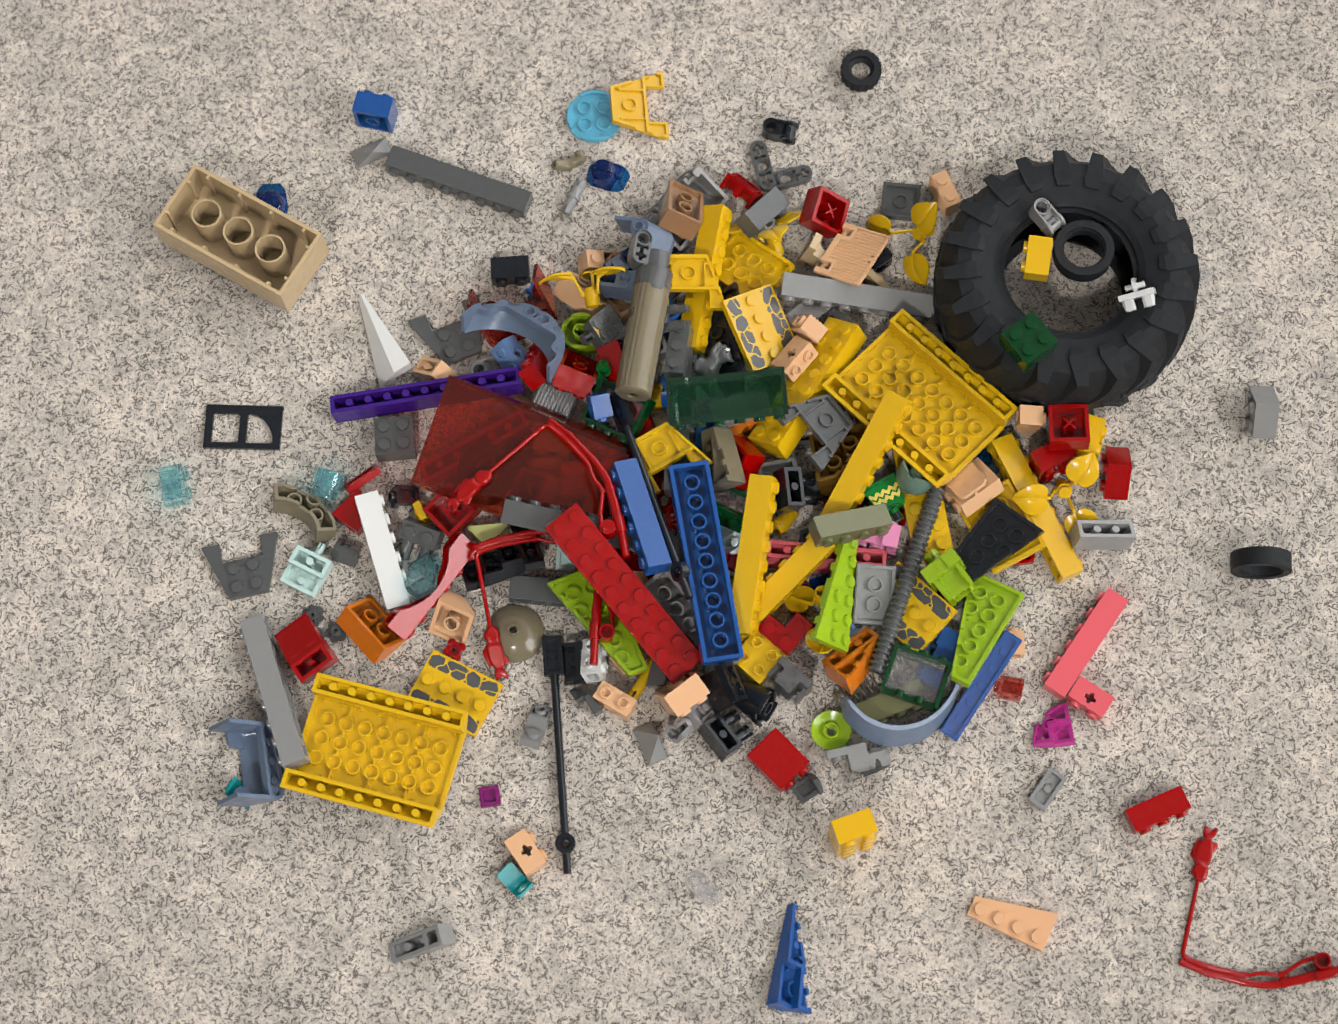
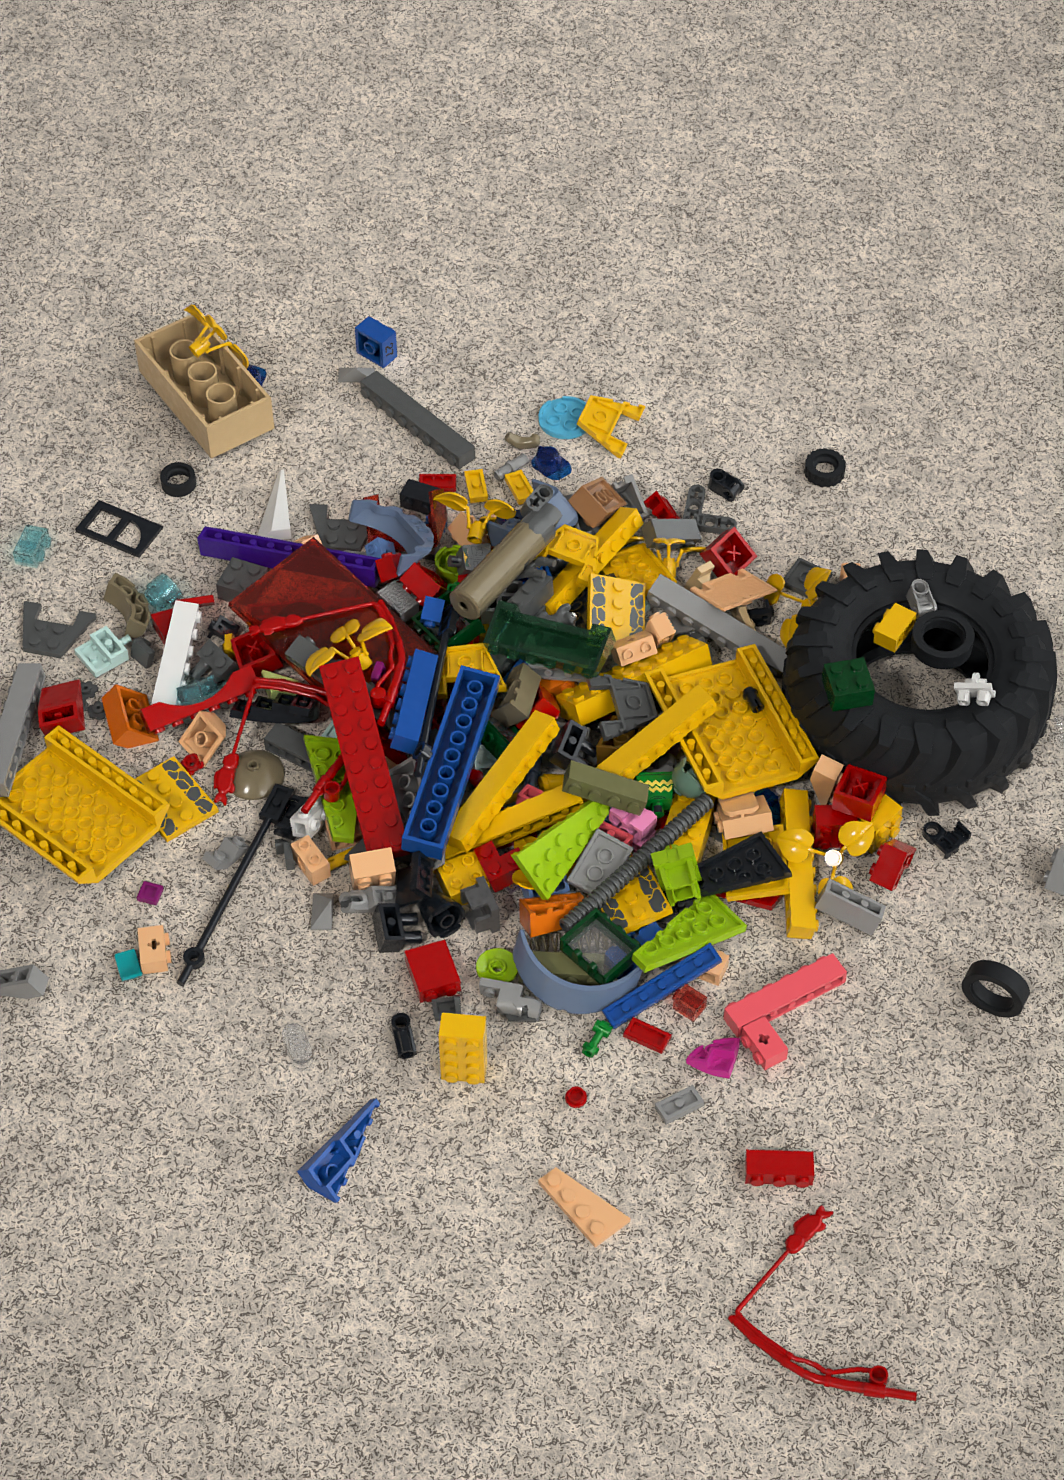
camera: 20 degrees right, 20 degrees down
(226, 204) = (202, 344): none -> yellow plant
(265, 336) = (182, 489): none -> black tyre
(515, 244) = (445, 481): none -> red plate
(552, 232) = (476, 486): none -> yellow plate
(575, 472) = (324, 654): none -> yellow plant
(593, 215) = (518, 485): none -> yellow plate
(593, 502) = (378, 671): none -> magenta tile
(788, 836) = (403, 1036): none -> black piece
(927, 367) = (752, 698): none -> black pin
(948, 747) = (601, 1029): none -> green bar
(958, 822) = (576, 1097): none -> red plate
(987, 734) = (647, 1035): none -> red tile
(1149, 424) = (949, 842): none -> black piece

